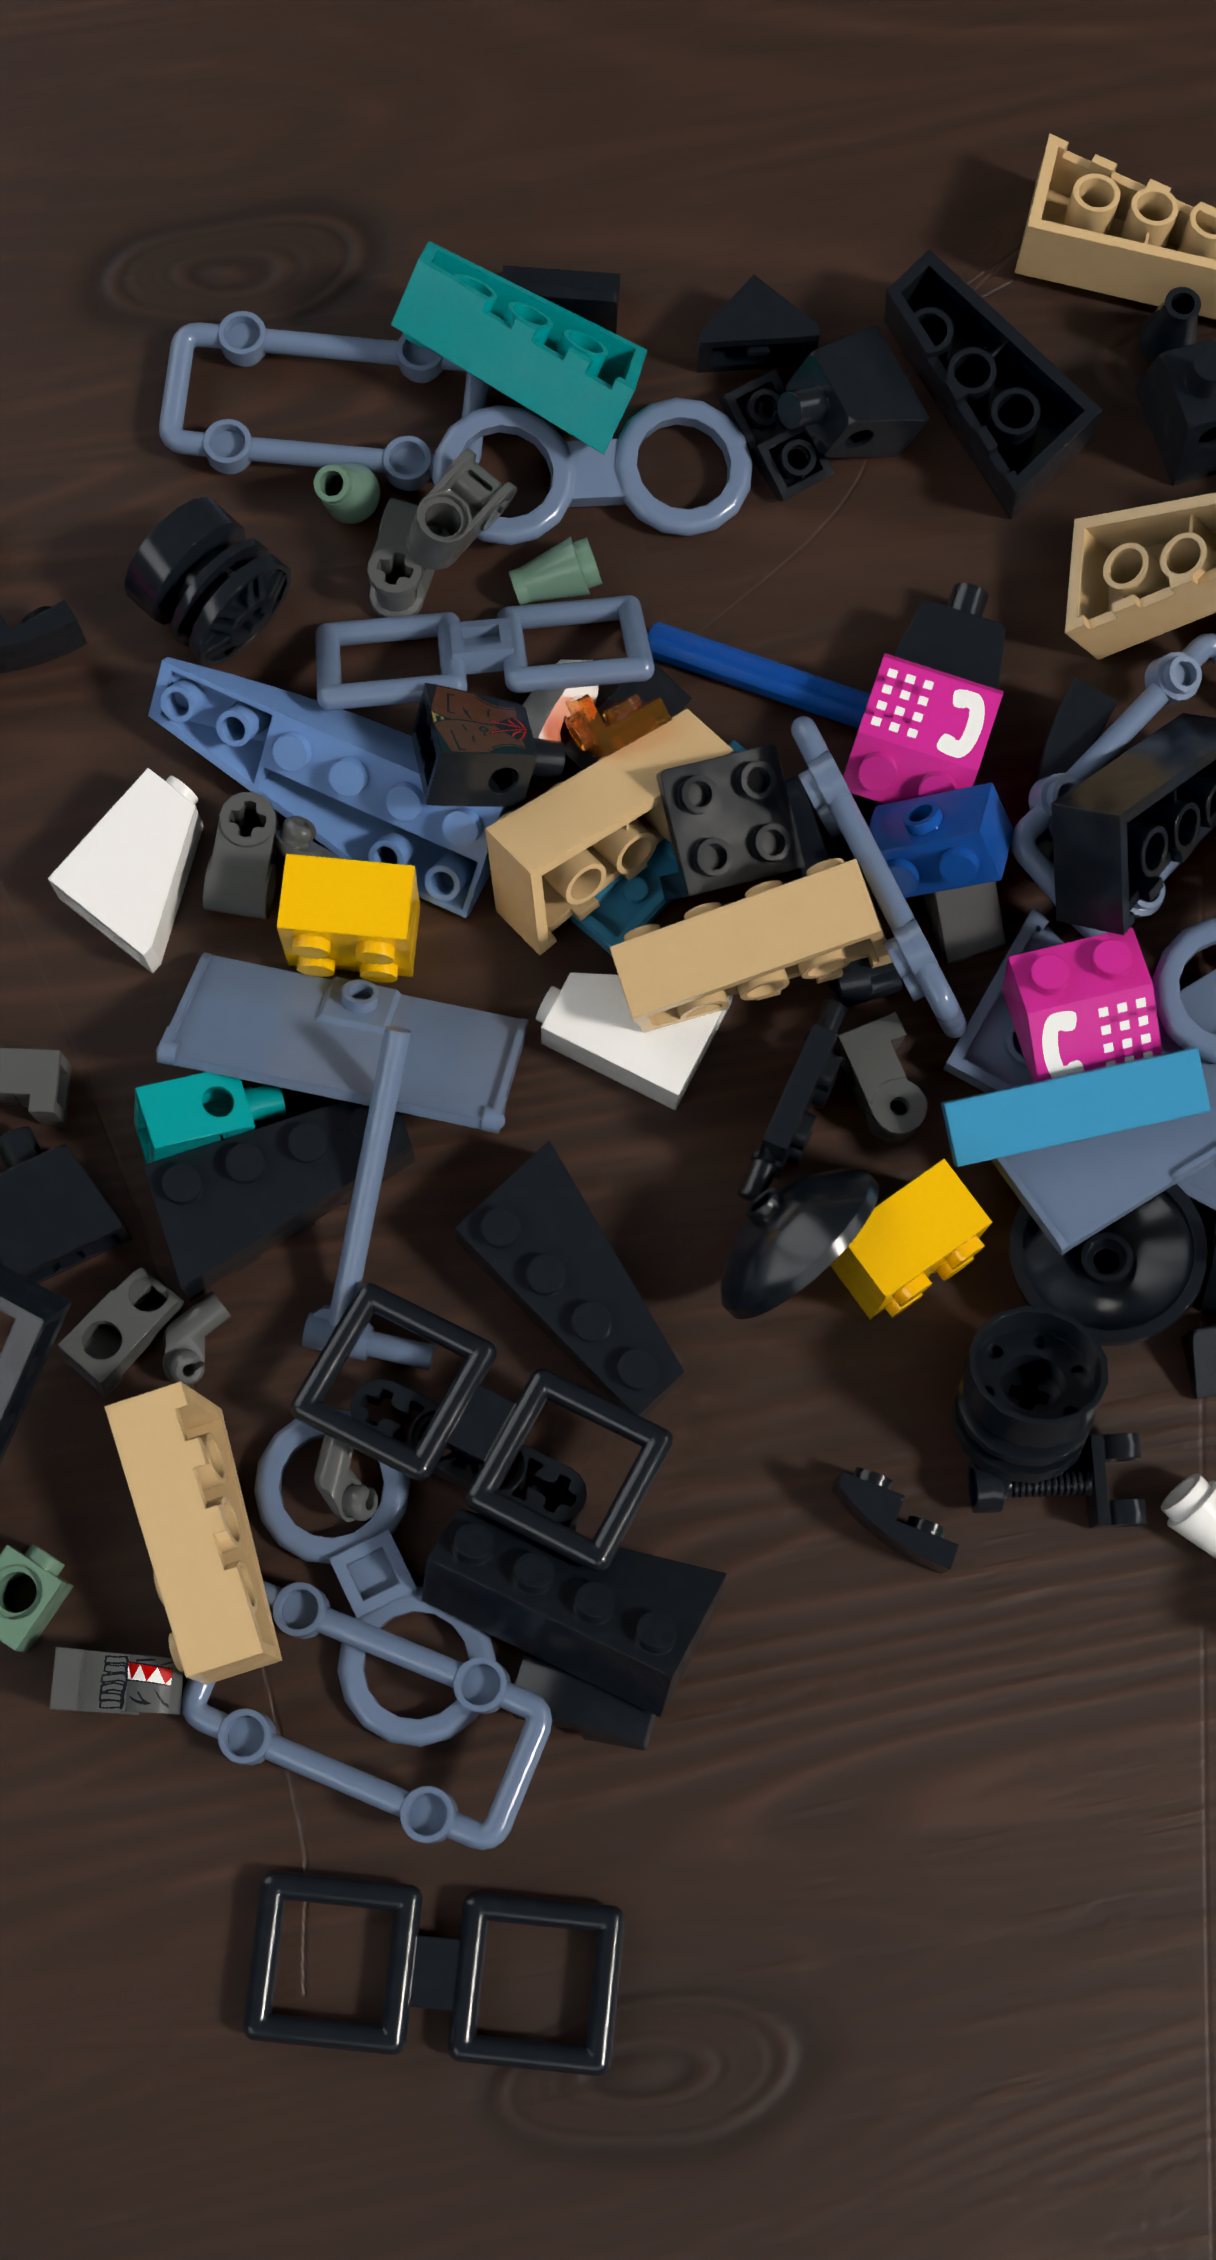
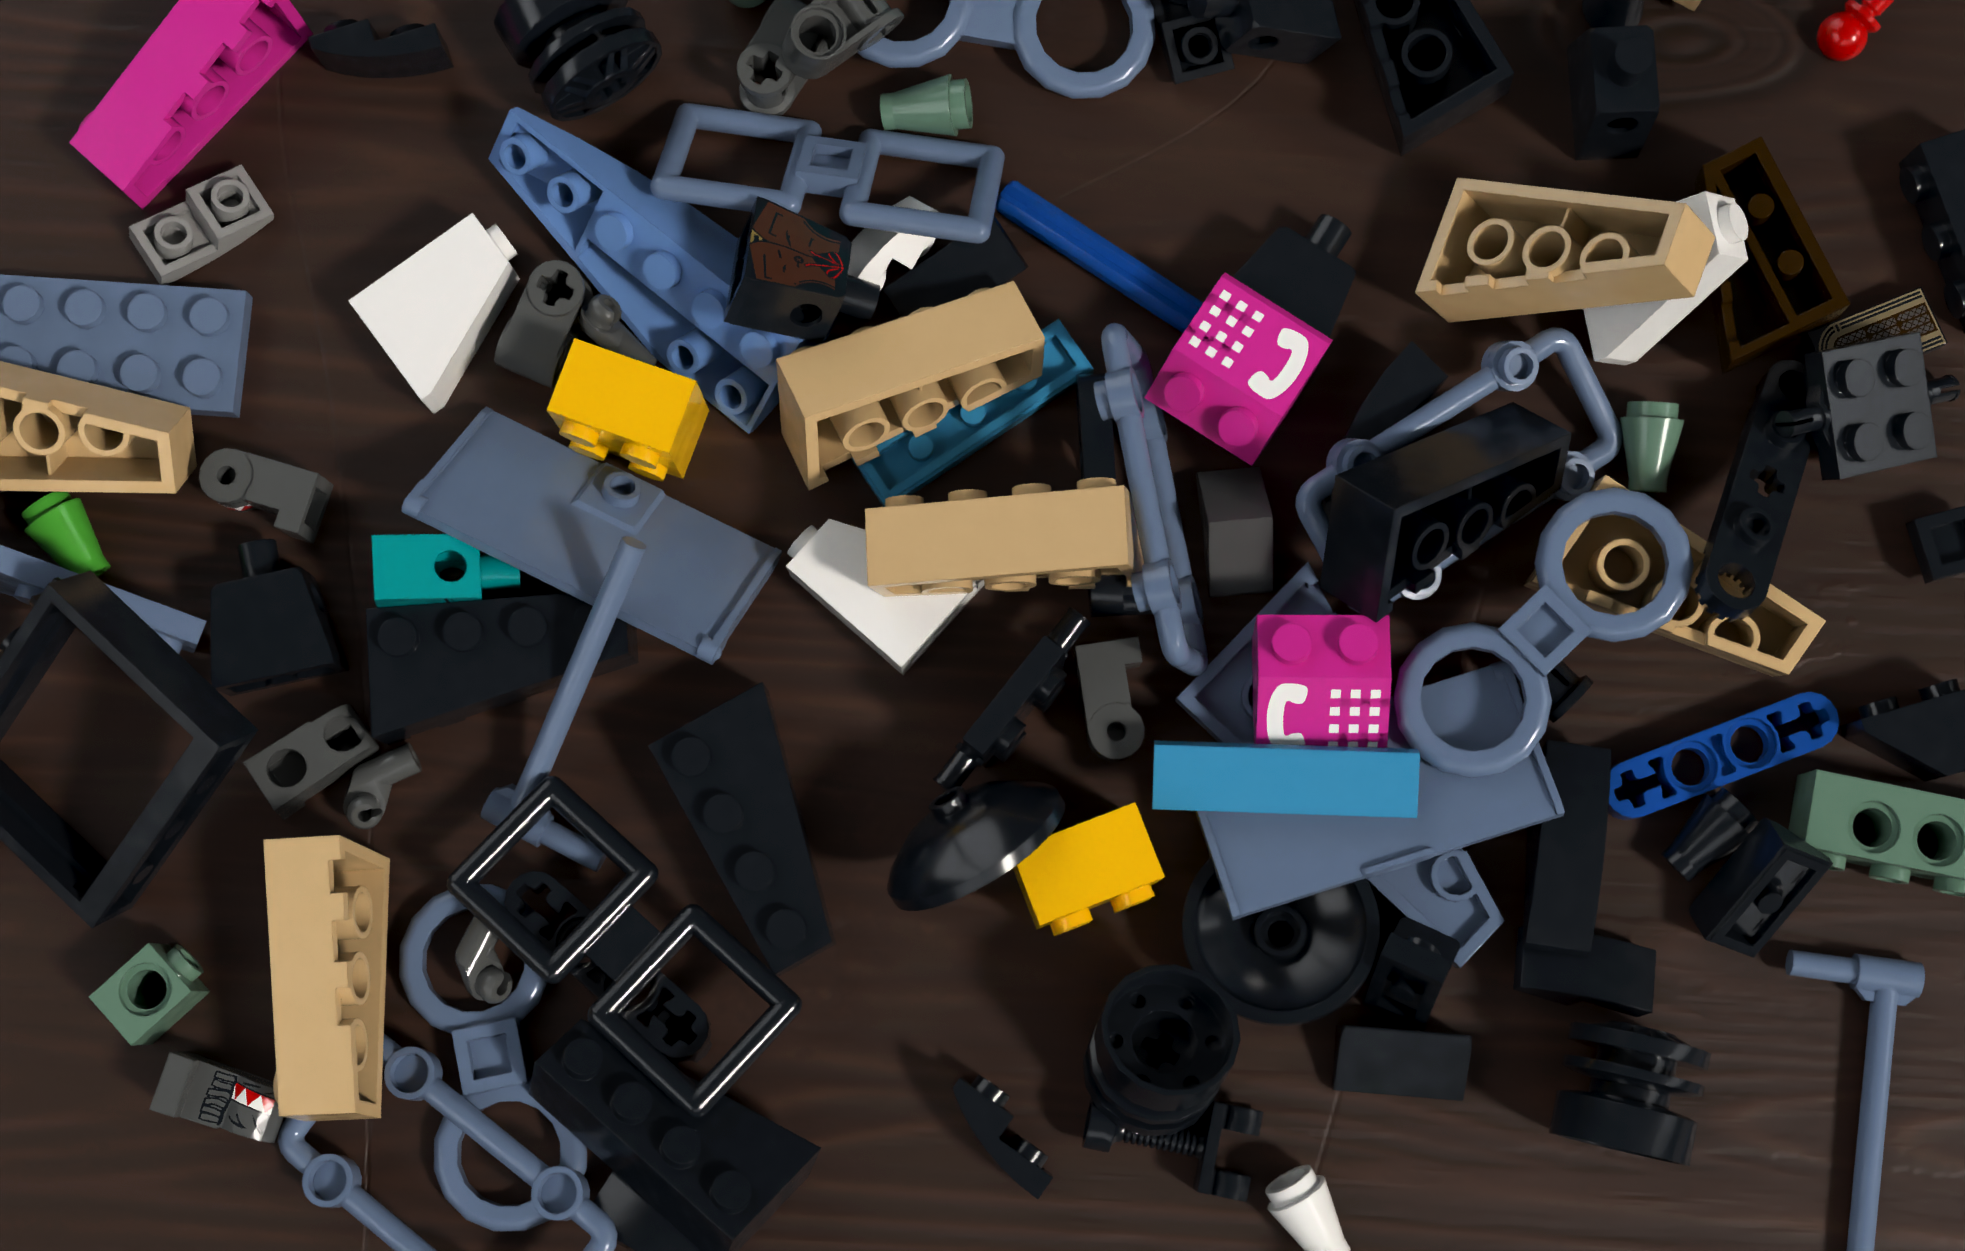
camera: 20 degrees right, 5 degrees up
(626, 722) = (949, 282): clear orange bracket -> none
(728, 822) = (1020, 407): black bracket -> none
(944, 839) = (1225, 478): blue brick -> none

